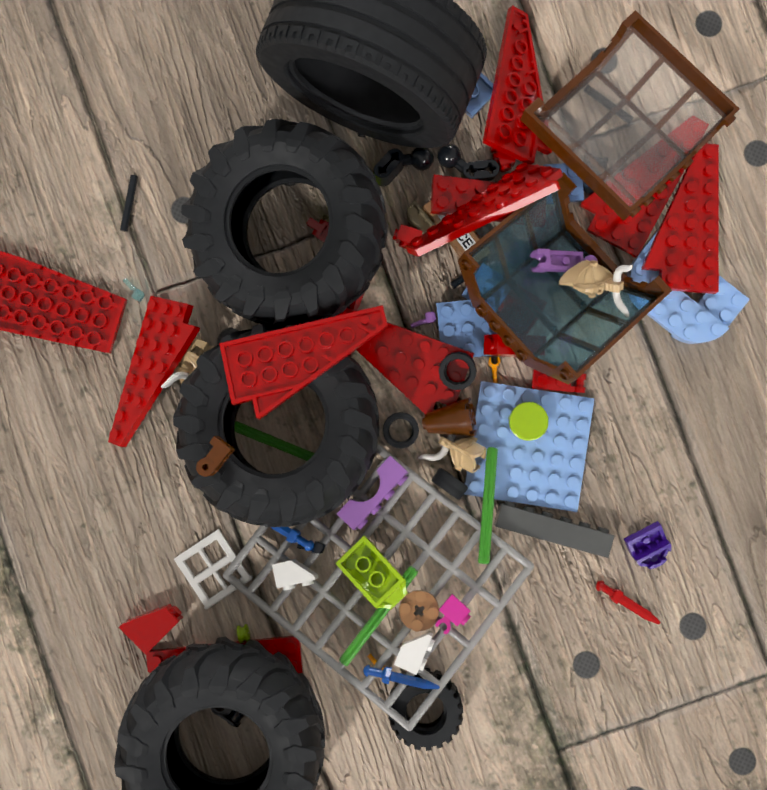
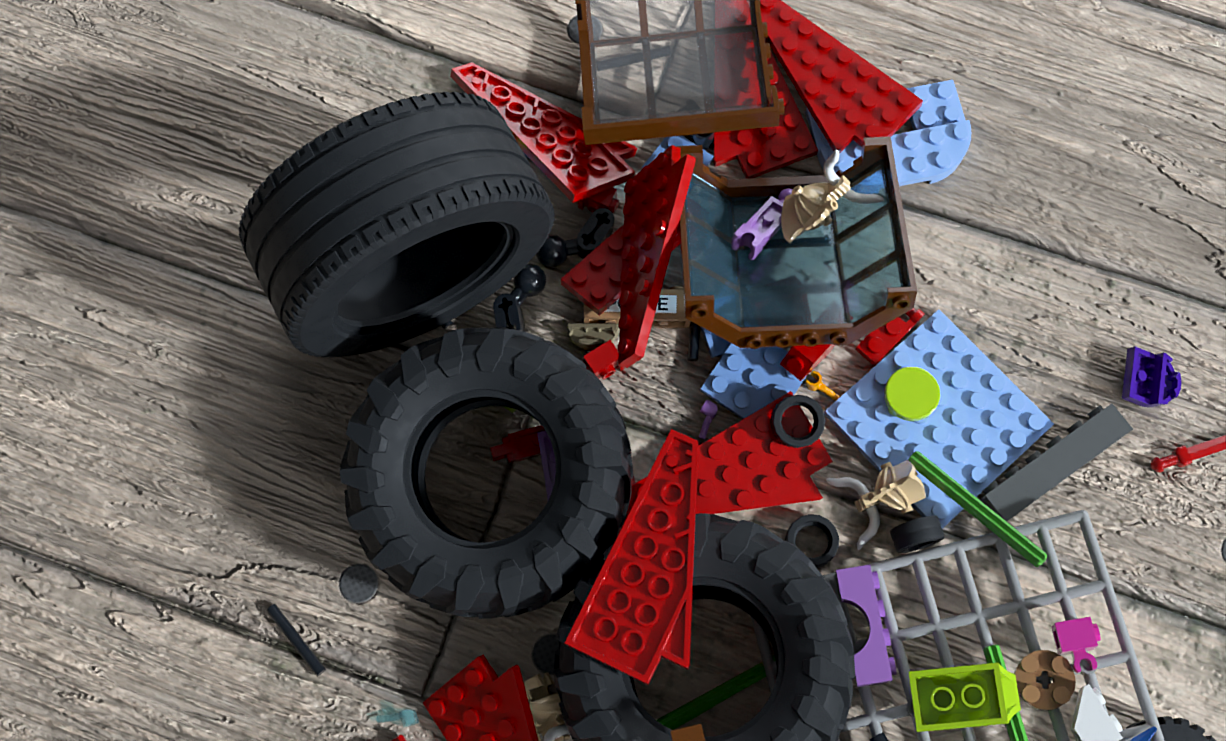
camera: 55 degrees left, 15 degrees down
(452, 419) = (846, 473): reddish brown cone -> none

